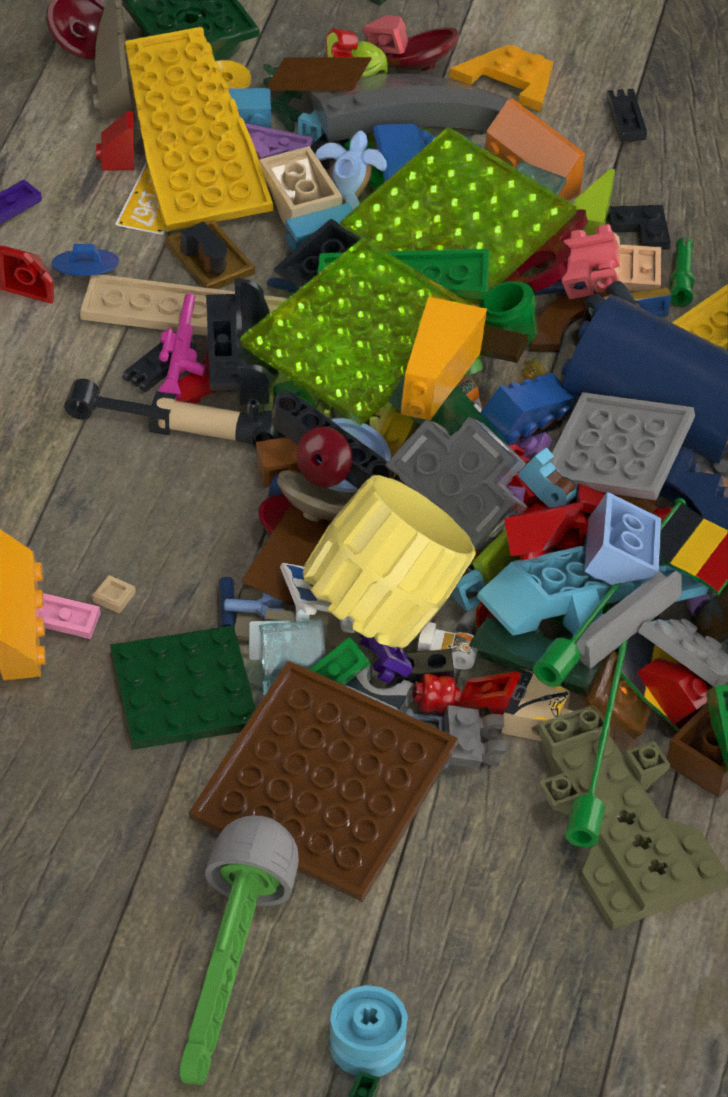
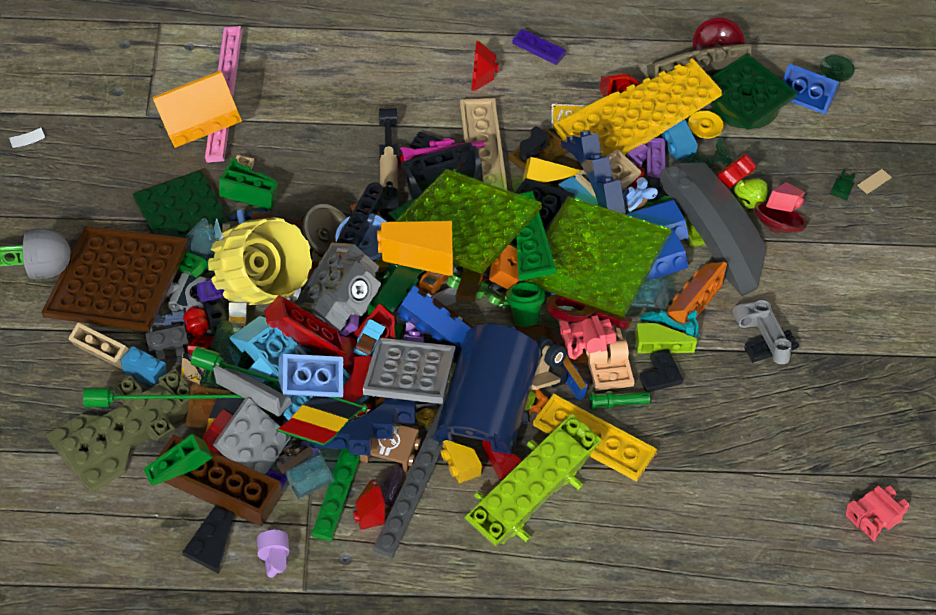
camera: 75 degrees right, 5 degrees up
(85, 261) = (507, 94): blue shield -> none
(175, 586) = (247, 186): none -> green wedge
(264, 249) = (546, 171): none -> yellow slope
(307, 173) = (598, 169): none -> dark blue arch
(319, 73) = (712, 161): reddish brown sticker -> none
(335, 457) = (342, 219): dark red dish -> none
(460, 819) = (98, 345): none -> tan brick
(512, 67) = (792, 275): light orange wing -> none
(513, 773) = (143, 367): none -> dark azure brick
(579, 106) = (761, 315): none -> light grey piece
(591, 171) = (690, 327): none -> teal piece

